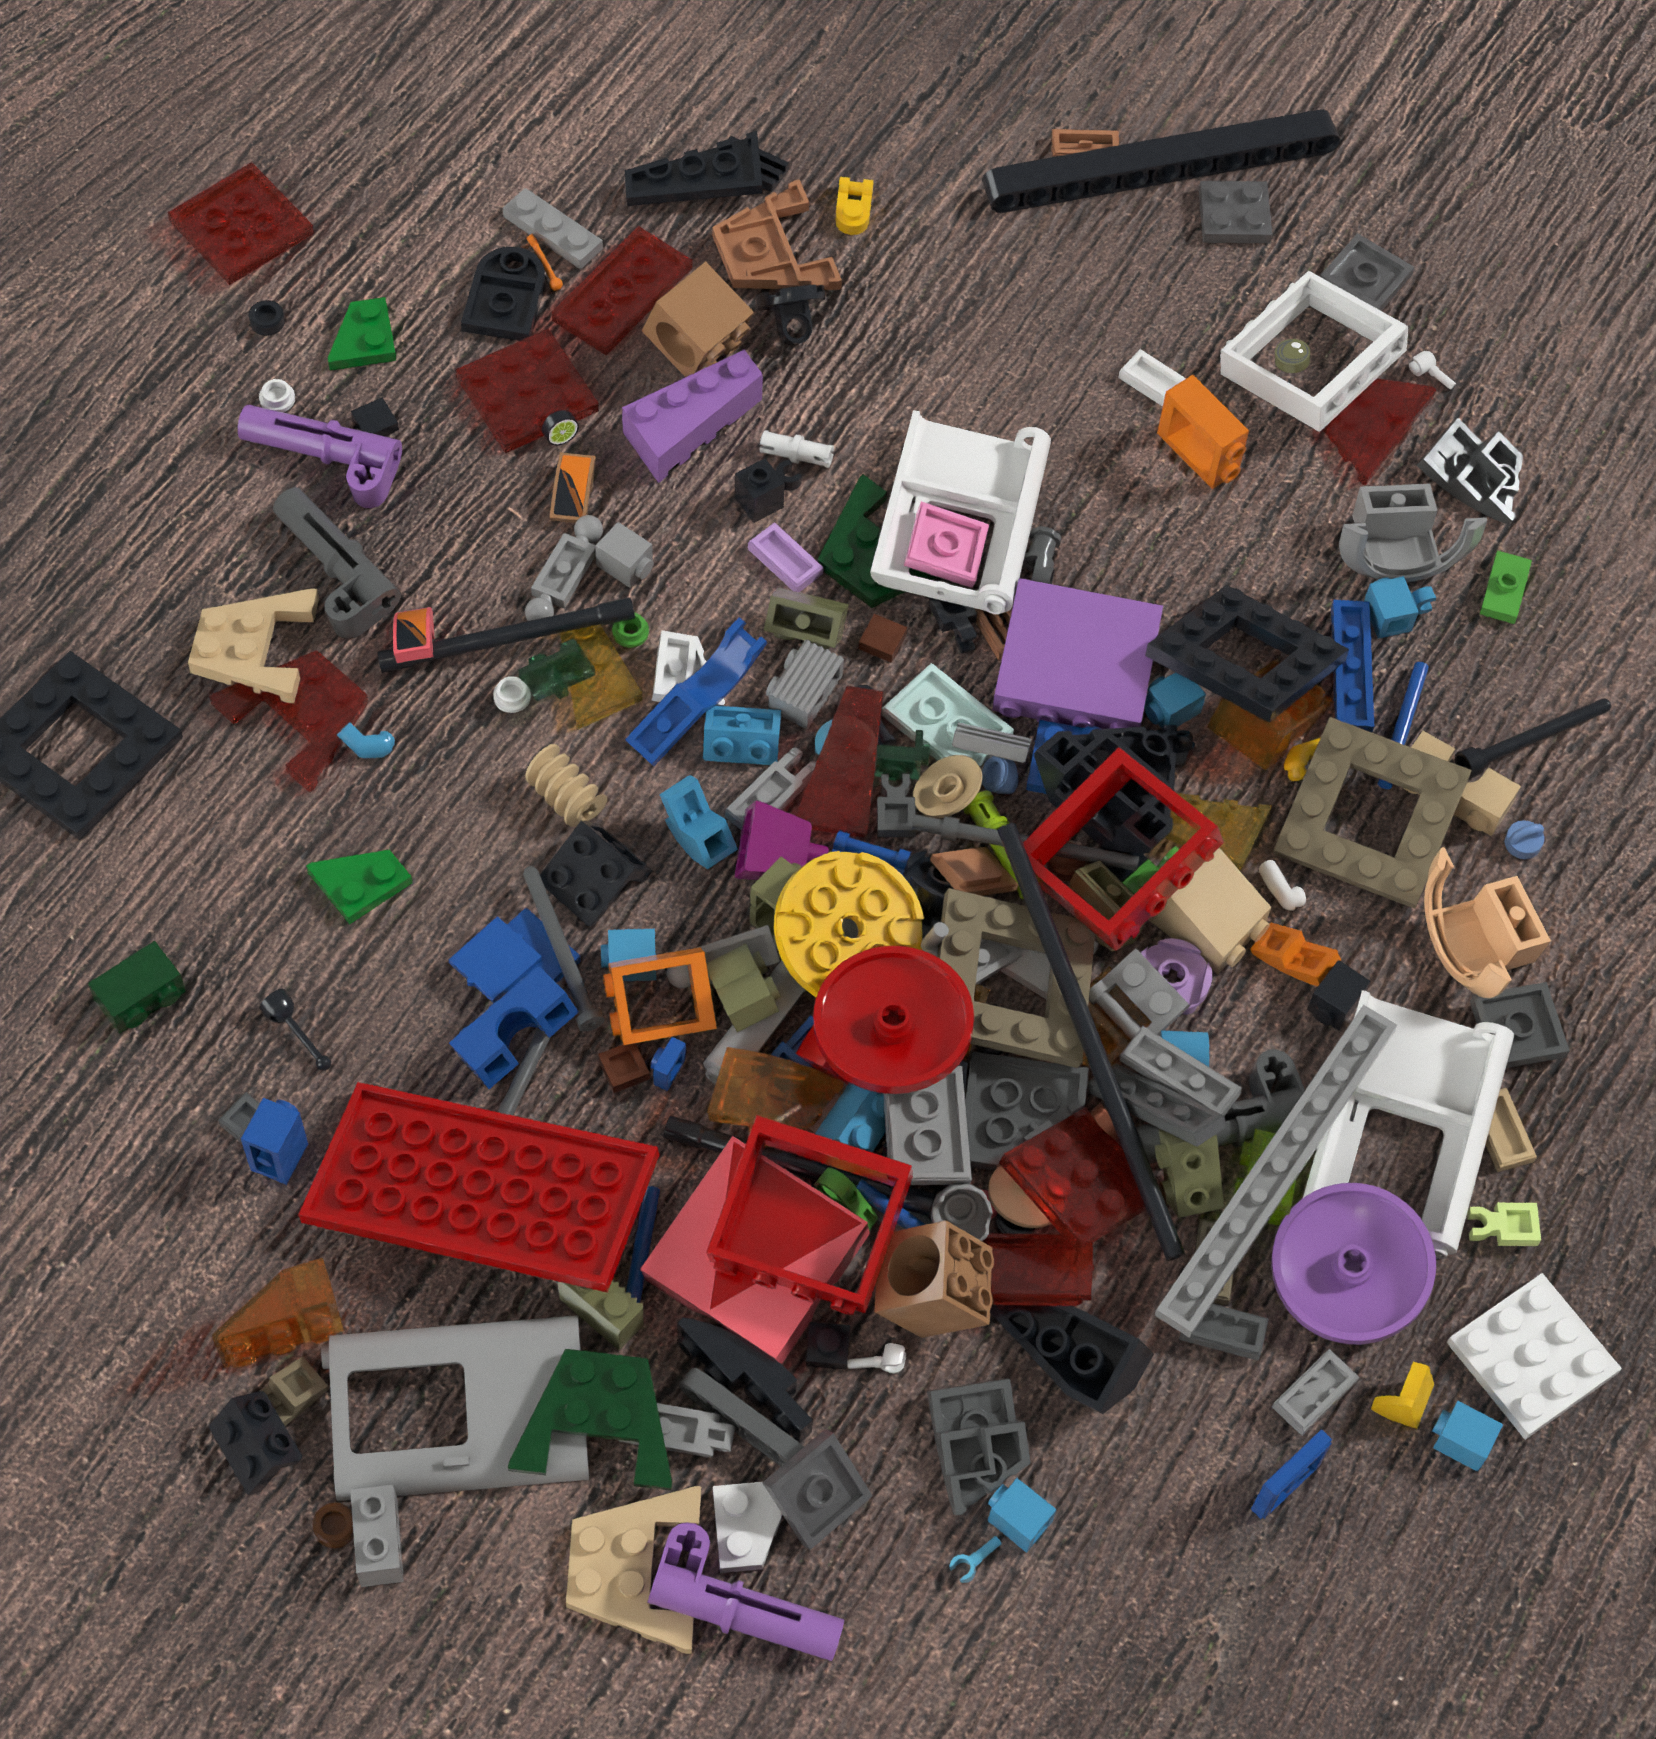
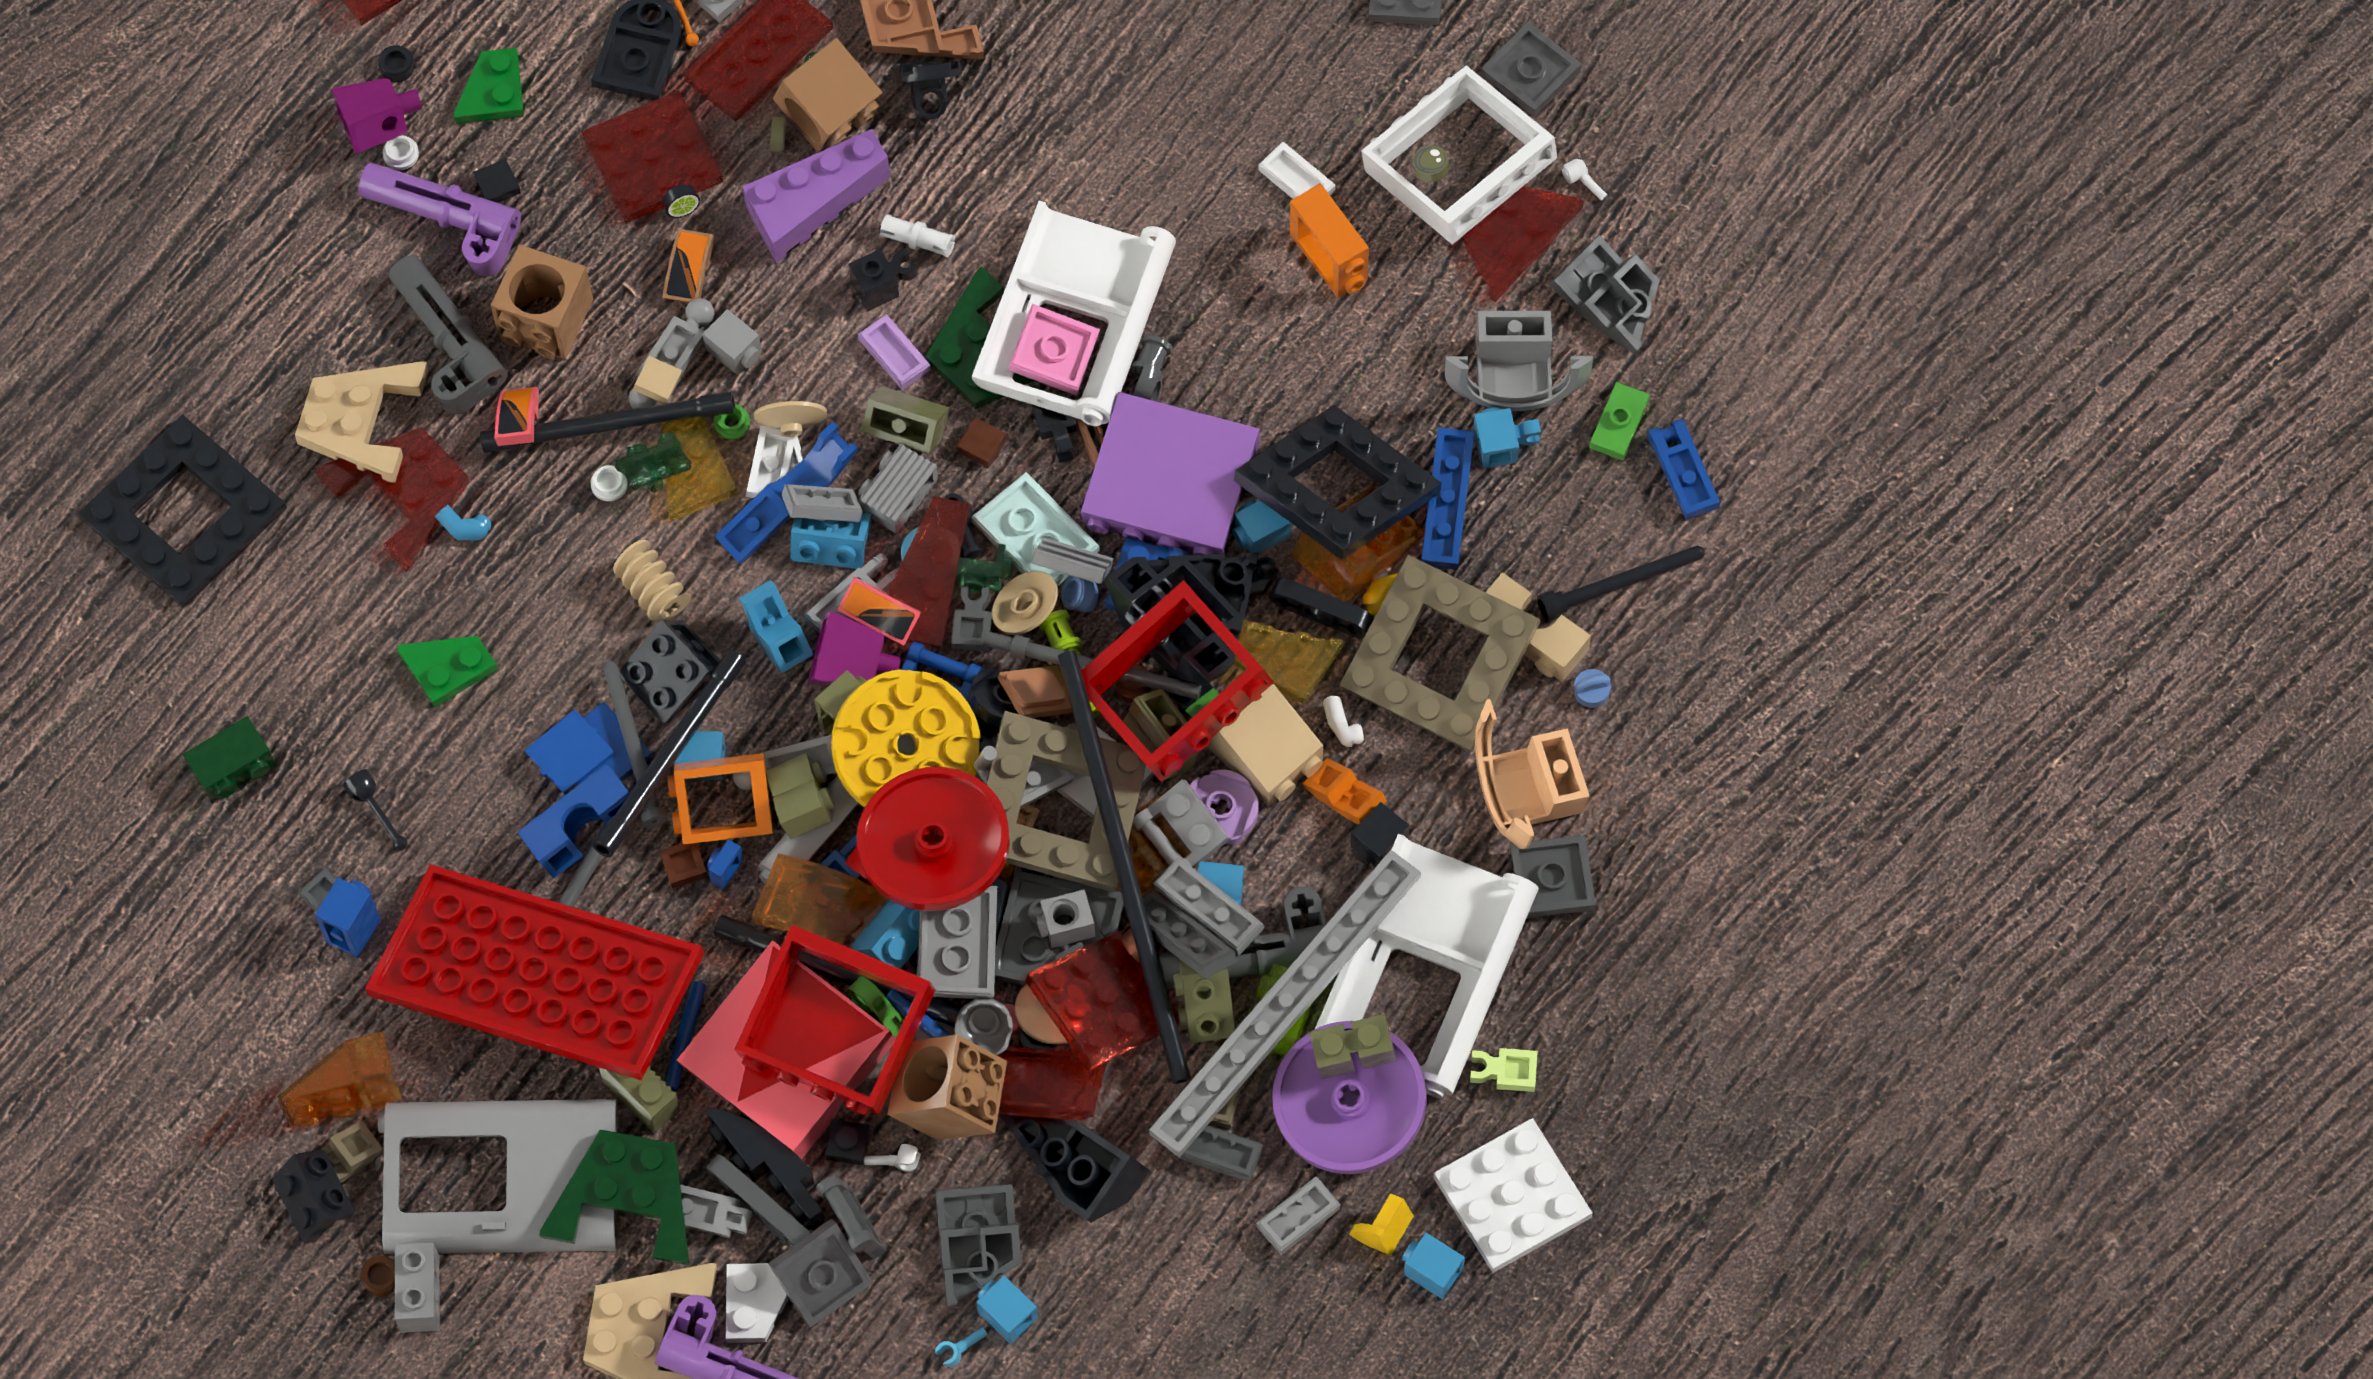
camera: 10 degrees right, 5 degrees up
(248, 358) = (373, 112): none -> magenta torso
(426, 500) = (534, 276): none -> medium nougat brick
(554, 591) = (657, 380): none -> tan tile
(560, 1025) = (619, 825): none -> black piece
(649, 363) = (778, 134): none -> olive tile
(692, 618) = (790, 416): none -> tan dish
(732, 699) = (821, 503): none -> light grey plate
(803, 800) = (879, 611): none -> slope
(838, 1418) = (852, 1216): none -> dark grey plate
(1044, 1084) = (1071, 904): none -> light grey brick
(1244, 776) = (1321, 607): none -> black beam
(1291, 1475) = (1258, 1290): blue tile -> none
(1339, 1209) = (1368, 1038): none -> olive piece
(1408, 709) = (1498, 545): blue bar -> none
(1507, 1137) = (1523, 982): tan tile -> none
(1577, 627) = (1684, 469): none -> blue plate

